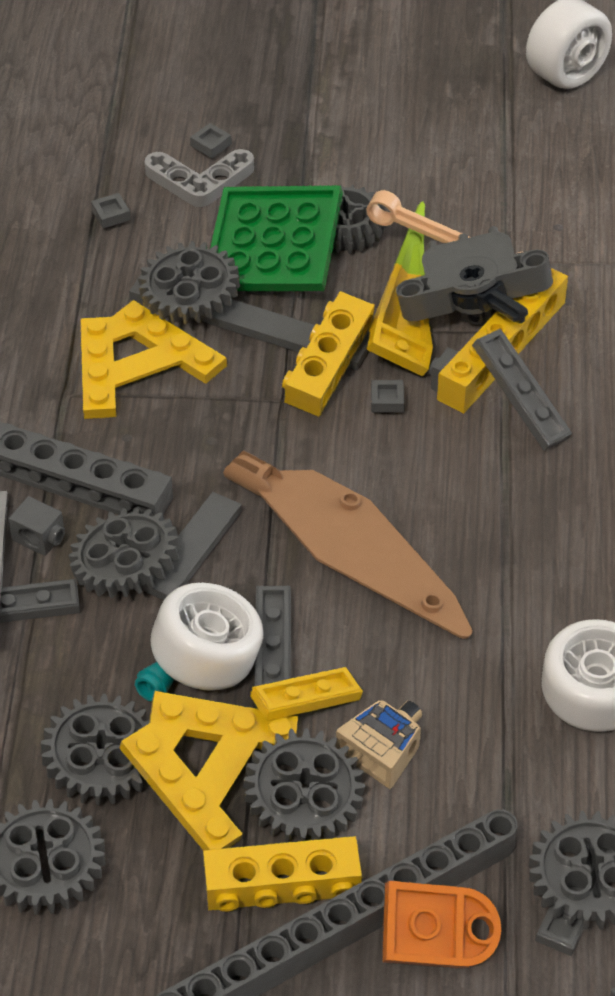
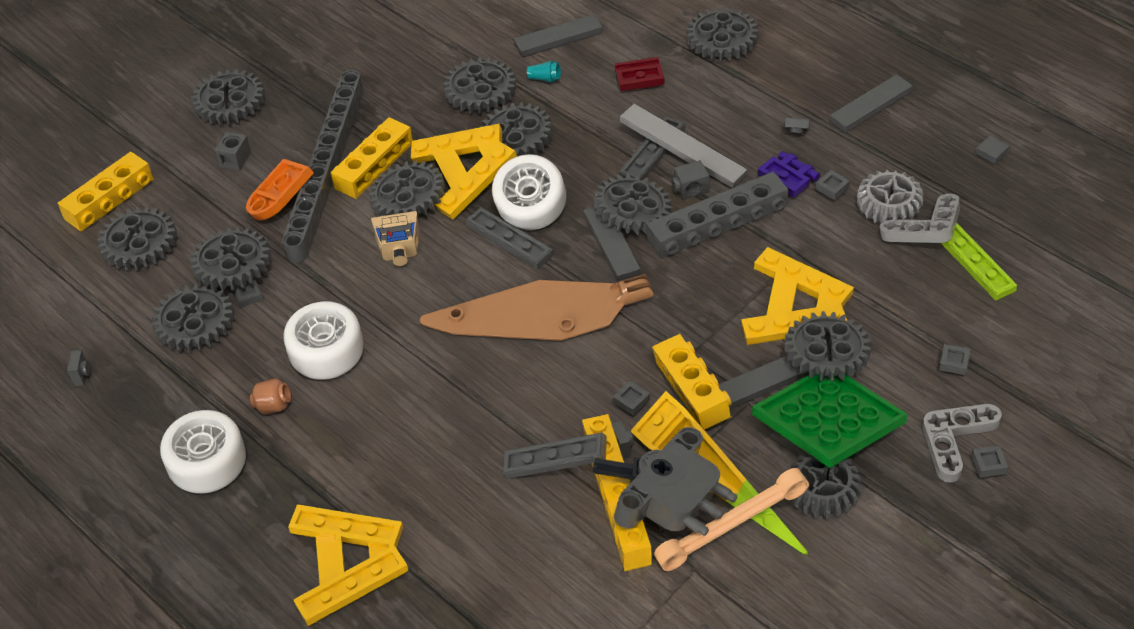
camera: 135 degrees right, 0 degrees up
(306, 693) = (456, 222): yellow tile -> none

